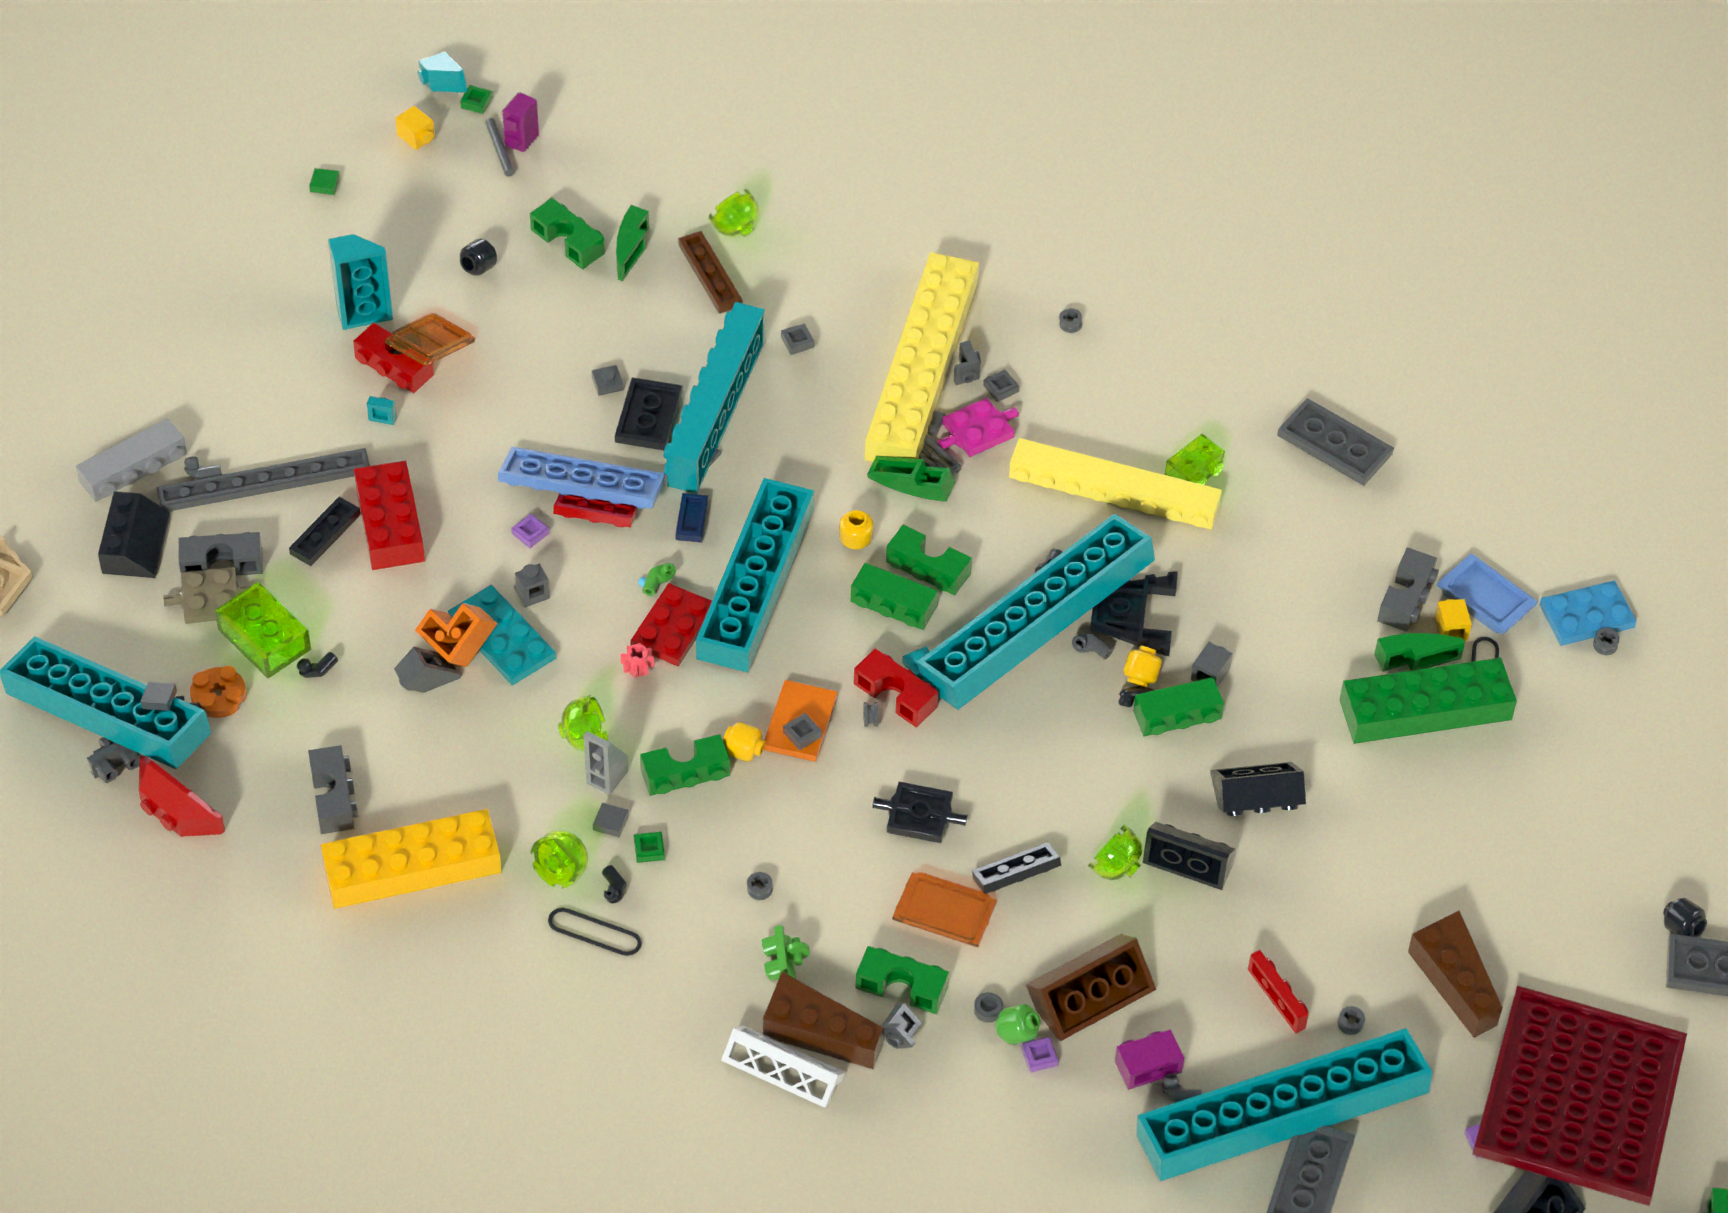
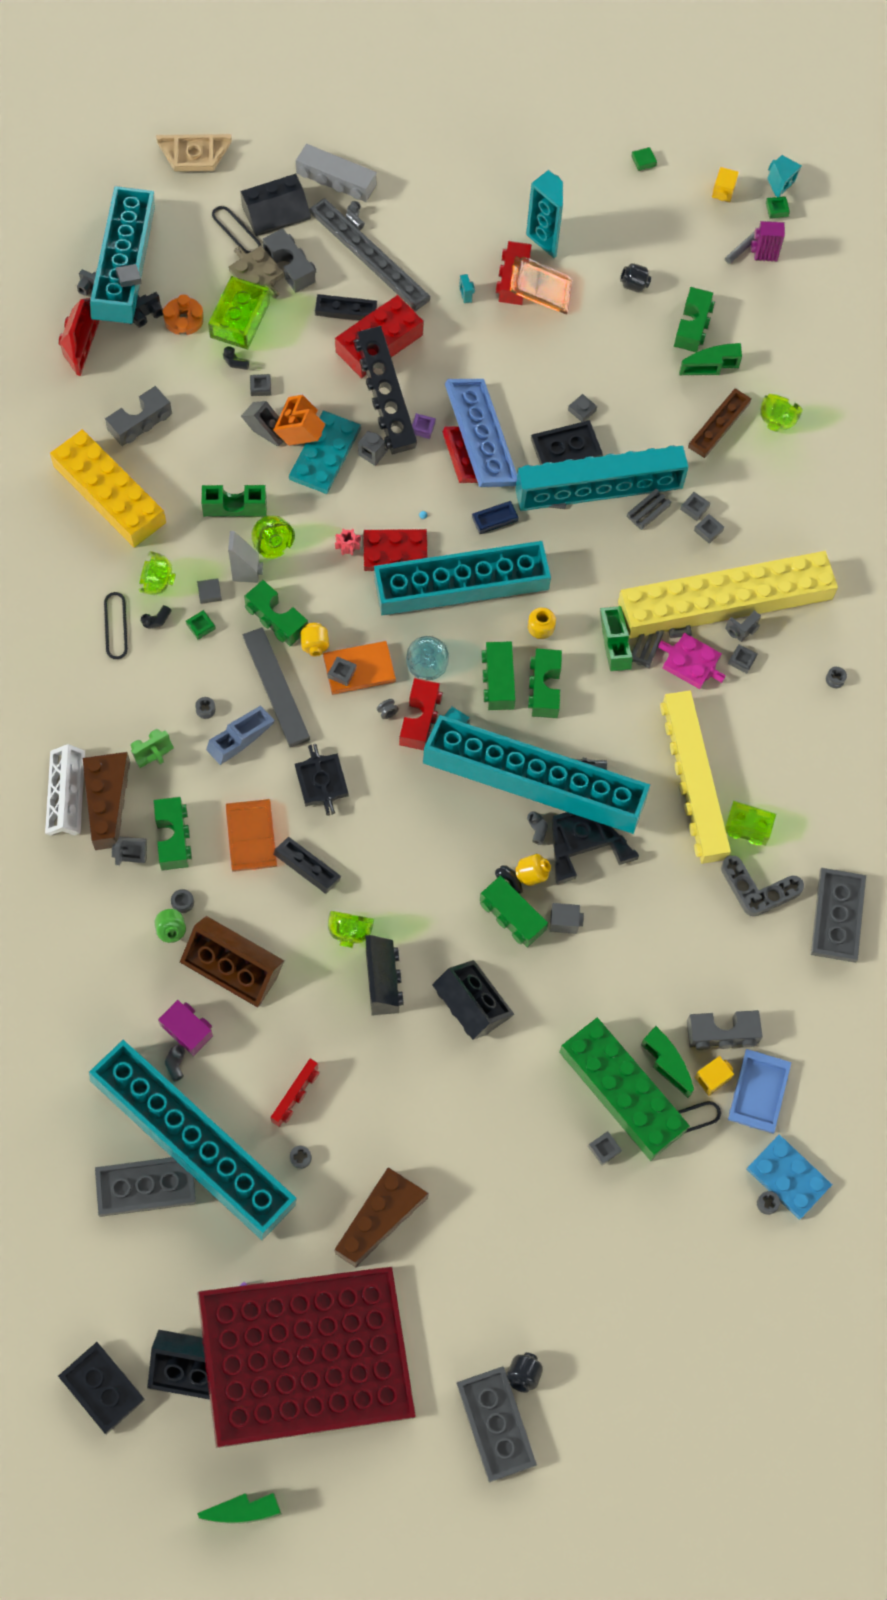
camera: 60 degrees right, 15 degrees up
(129, 584) = (232, 237): none -> black piece
(368, 657) = (260, 385): none -> dark grey tile
(431, 520) = (374, 339): none -> black brick
(507, 755) = (219, 503): none -> green arch
(656, 576) = (429, 520): bright green arm -> none
(768, 365) = (659, 498): none -> dark grey tile
(775, 807) = (276, 687): none -> dark grey tile
(817, 865) = (239, 734): none -> sand blue slope
(829, 652) = (427, 657): none -> clear light blue cylinder
(832, 340) = (709, 528): none -> dark grey plate
(1039, 1054) = (160, 953): medium lavender tile -> none
(1272, 500) = (753, 893): none -> dark grey beam
(1481, 747) = (604, 1148): none -> dark grey plate

